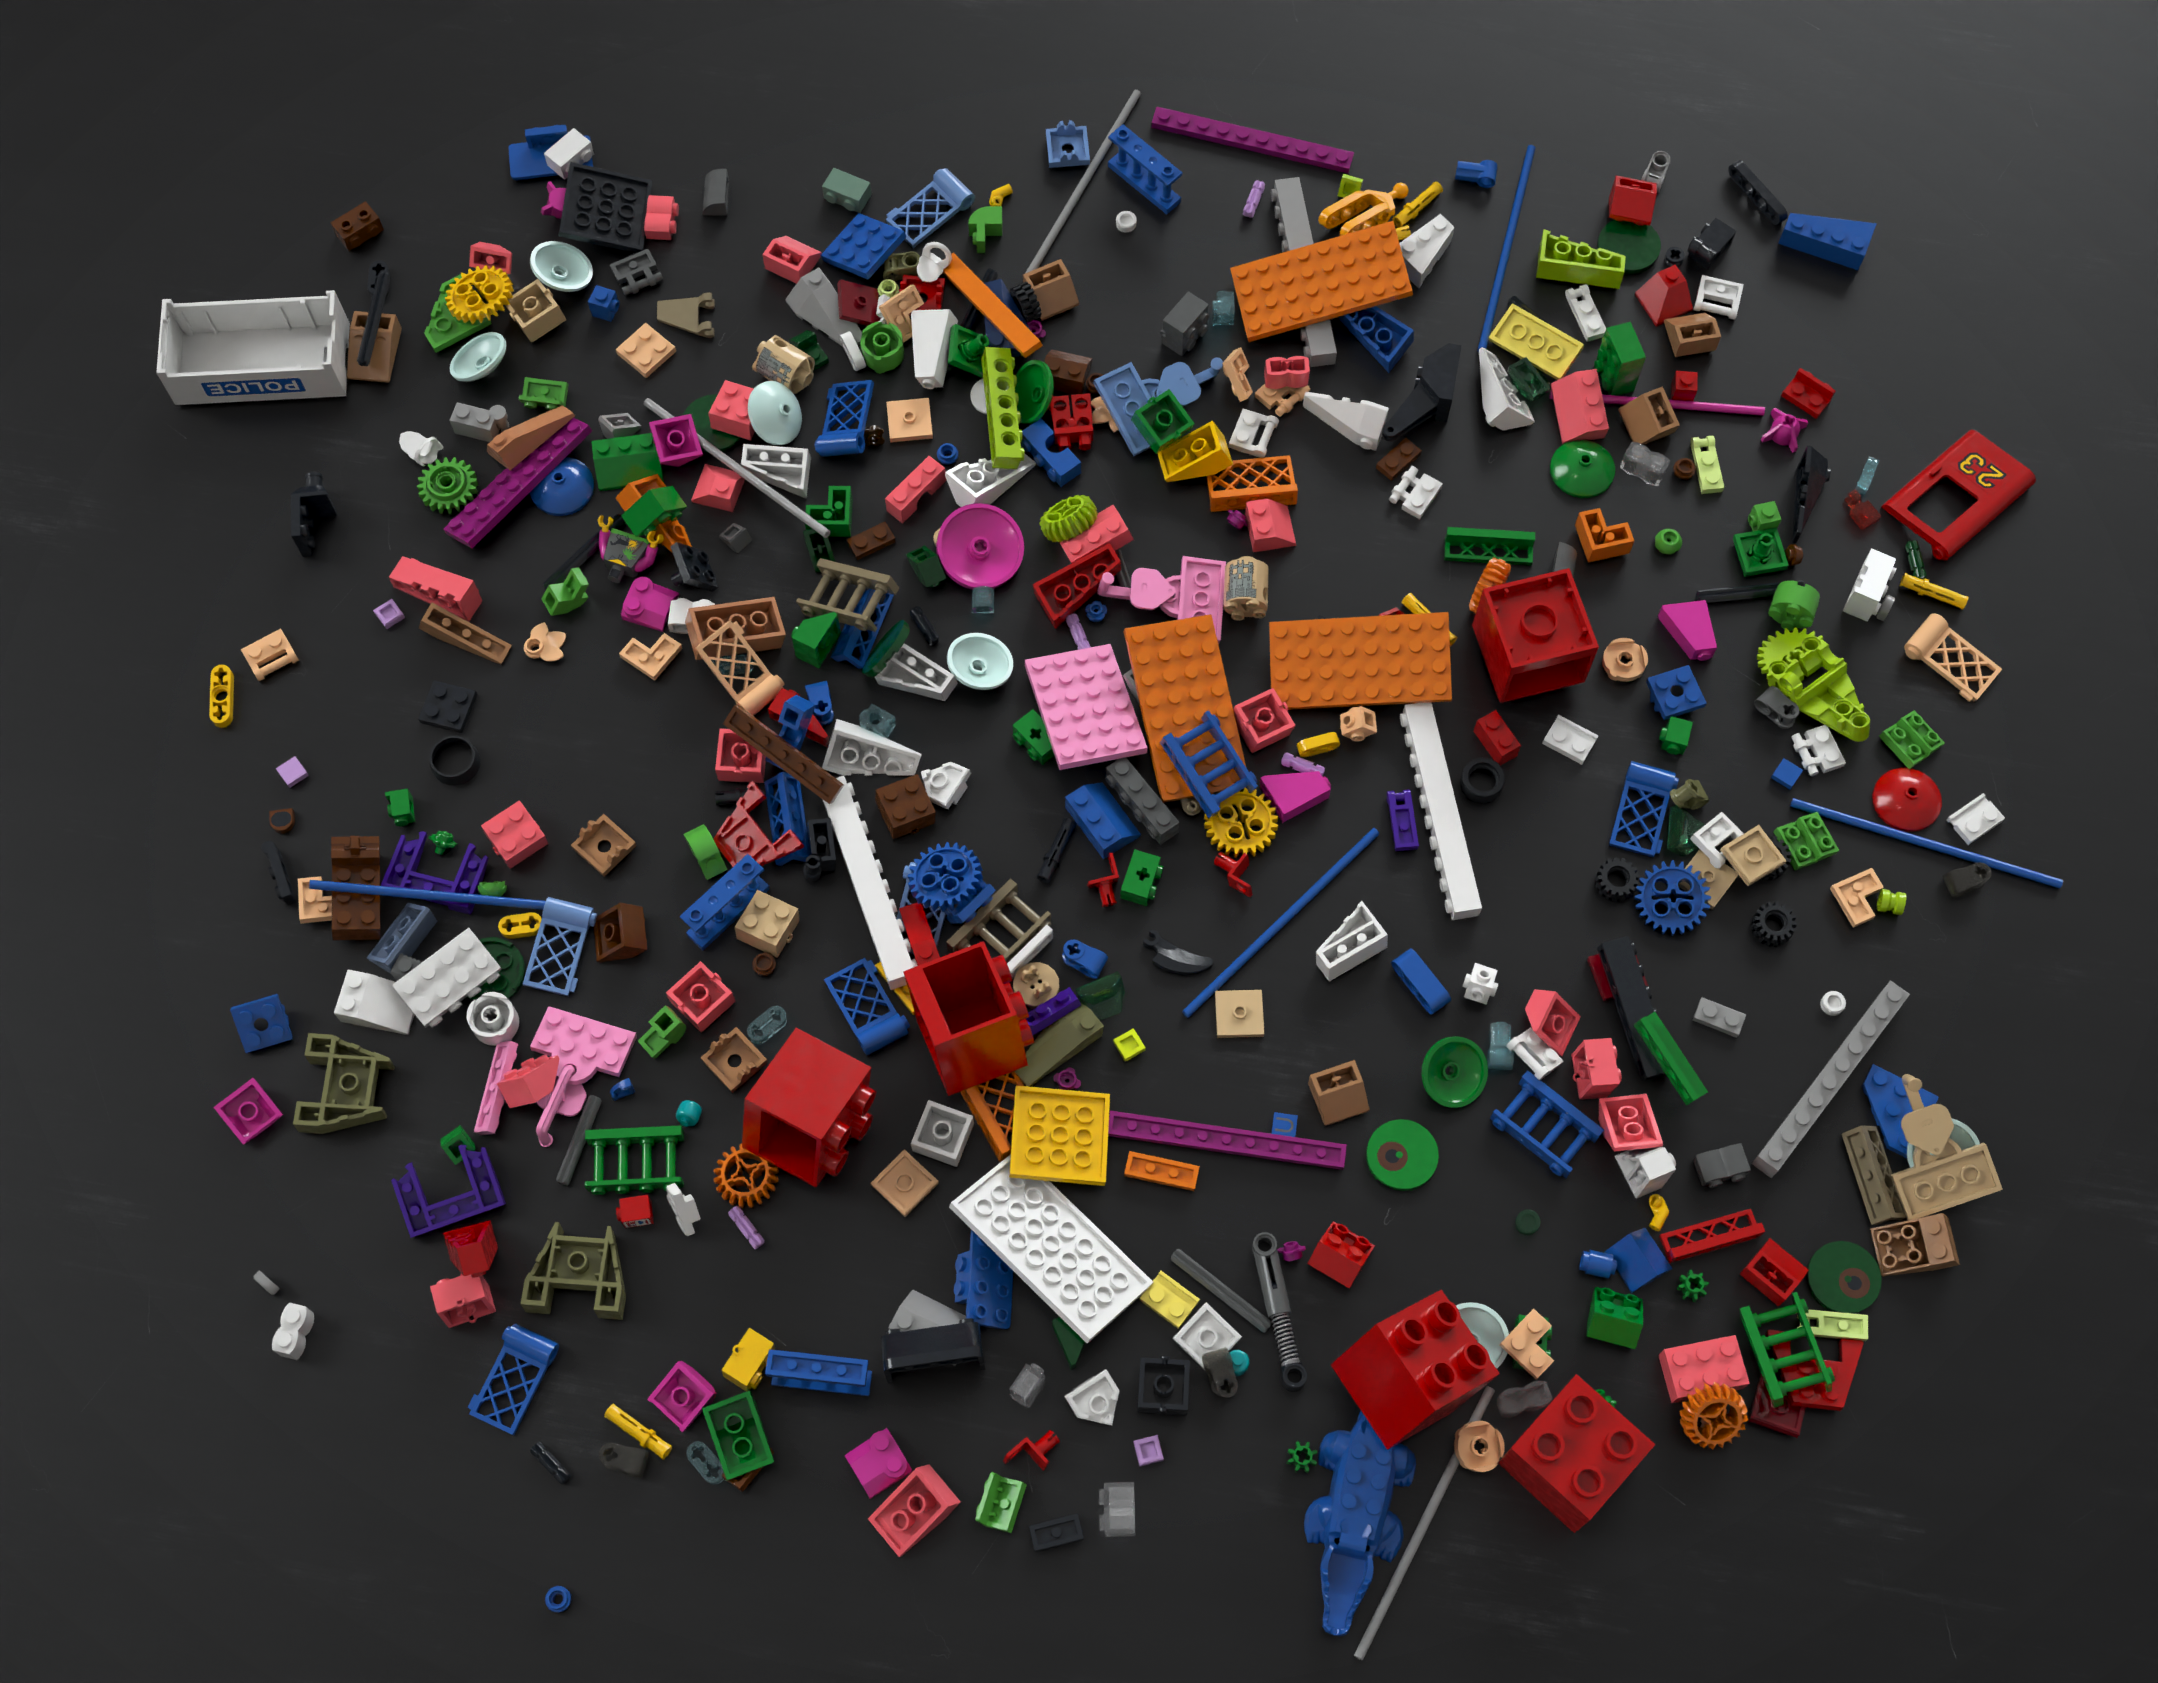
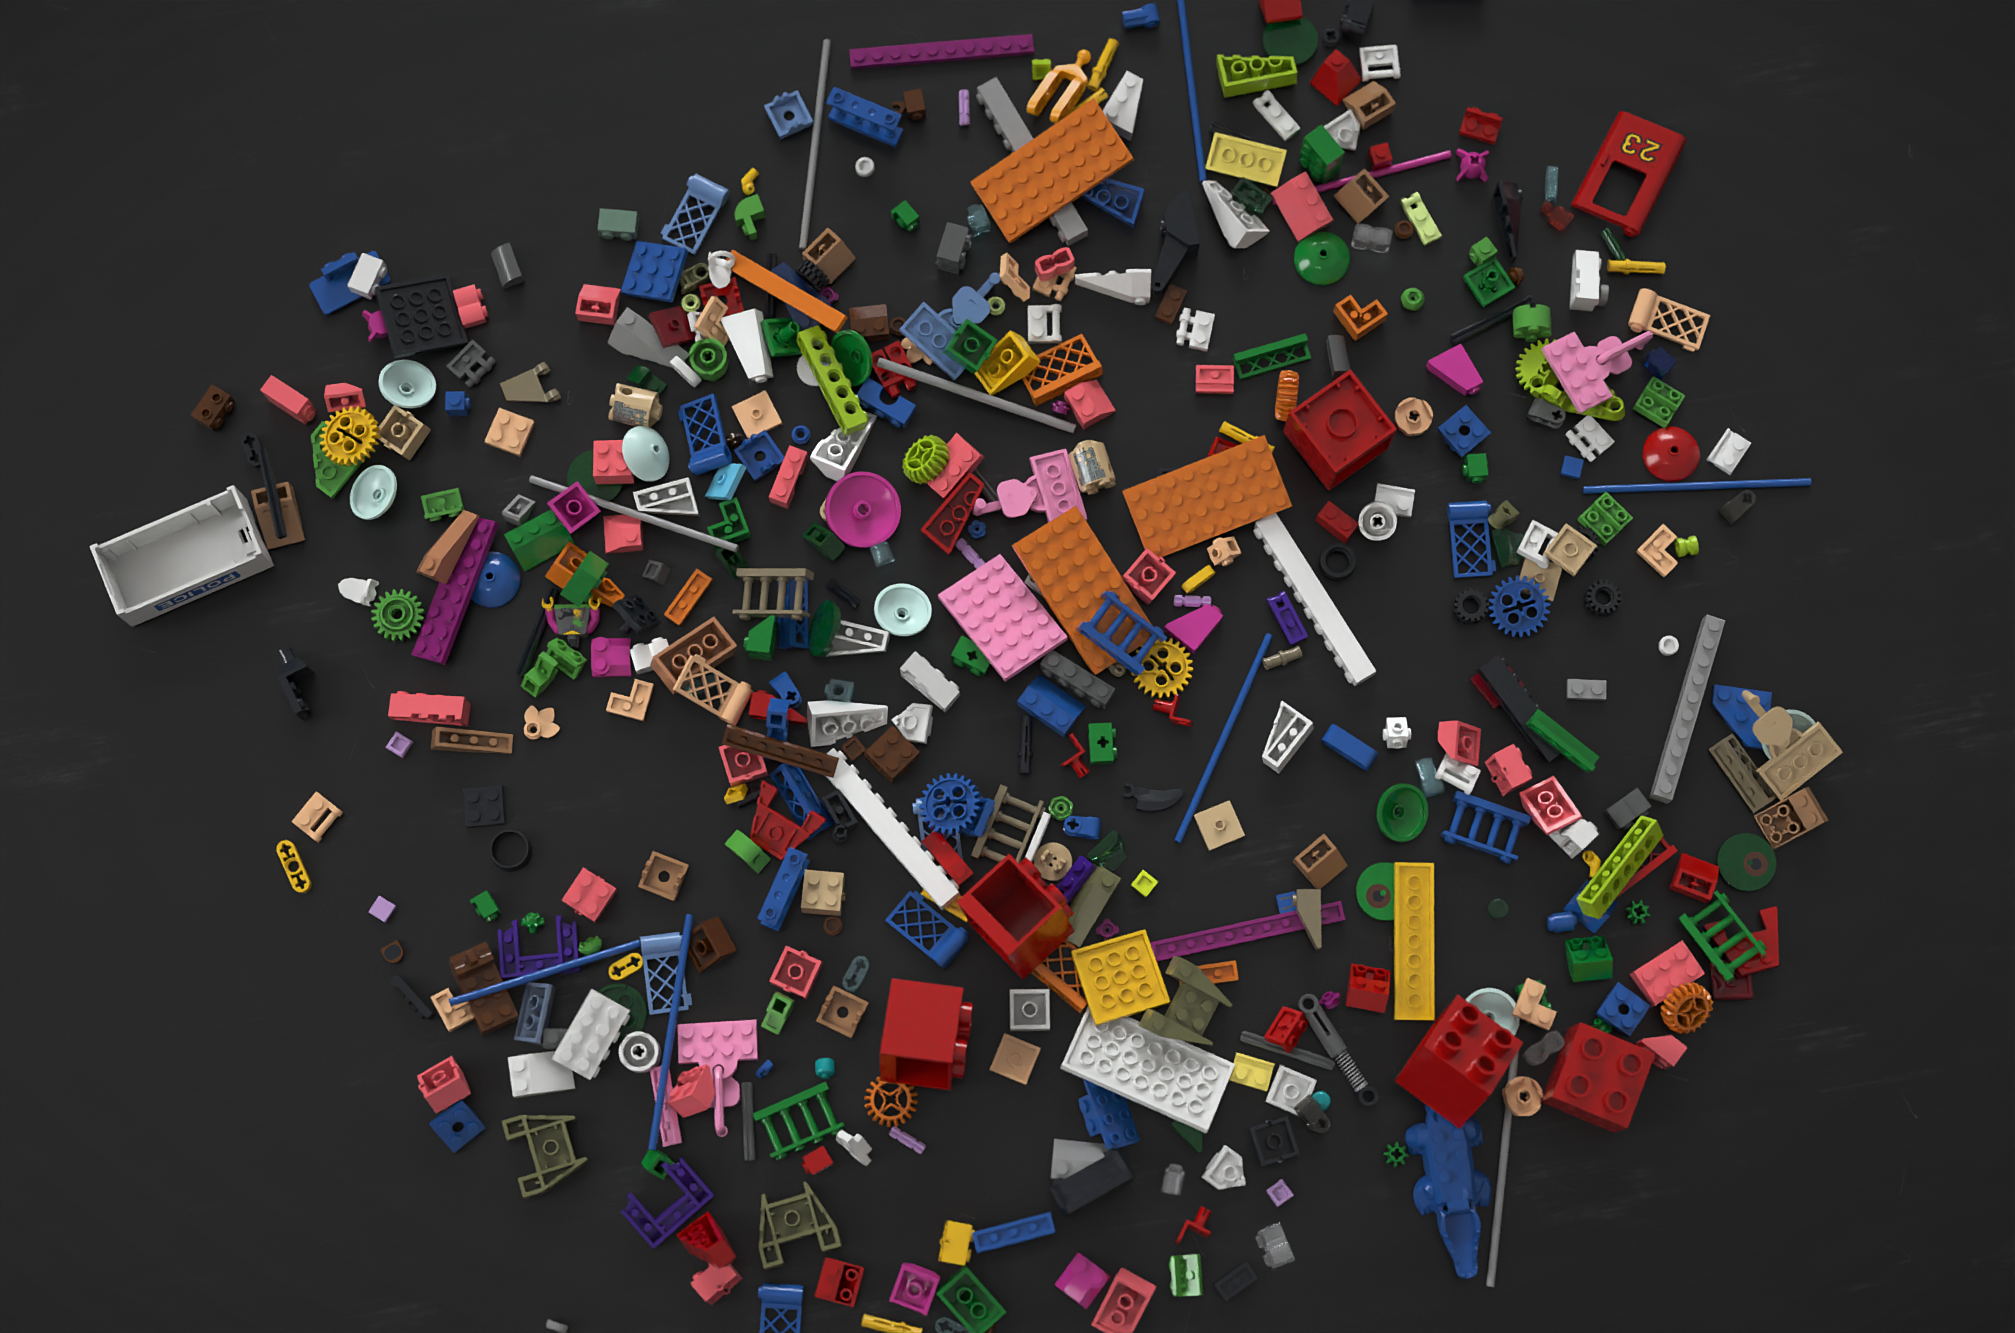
camera: 20 degrees left, 10 degrees up
(248, 1111) = (479, 1198): dark pink slope -> none
(266, 973) = (443, 1084): none -> coral brick
(434, 241) = (288, 400): none -> coral brick
(479, 422) = (399, 550): light grey hinge -> none
(534, 1009) = (670, 1032): none -> blue piece
(599, 1354) = (839, 1282): none -> red slope
(601, 587) = (568, 660): none -> bright green bracket
(718, 786) = (735, 793): none -> yellow tile
(757, 572) = (688, 597): none -> orange plate
(847, 469) = (725, 482): none -> medium azure plate
(866, 787) = (853, 749): none -> reddish brown tile
(871, 540) = (769, 534): reddish brown plate -> none
(889, 447) = (756, 443): none -> blue piece
(978, 744) = (929, 681): none -> white wedge
(1071, 924) = (1058, 802): none -> bright green plate
(1124, 1198) = (1190, 1007): none -> olive wedge
(1148, 279) = (905, 216): none -> green brick
(1151, 475) = (976, 395): none -> light grey piece
(1200, 178) = (912, 104): none -> reddish brown brick
(1211, 393) = (996, 300): none -> yellowish green plate
(1229, 1264) = (1287, 1028): none -> red bracket
(1304, 1141) = (1309, 912): none -> dark tan slope
(1381, 859) = (1282, 658): none -> dark tan pin
(1414, 1220) = (1414, 941): none -> yellow plate
(1417, 548) = (1215, 379): none -> coral plate
(1545, 737) = (1366, 520): none -> white brick
(1631, 1406) = (1610, 1014): none -> blue piece
(1657, 349) = (1345, 130): none -> white plate
(1669, 1454) = (1667, 1050): none -> coral slope
(1688, 1223) = (1620, 867): none -> lime brick
(1838, 671) = (1585, 368): none -> bright pink plate
(1838, 1325) = (1754, 901): yellowish green plate -> none
(1927, 696) = (1659, 362): none -> clear blue brick

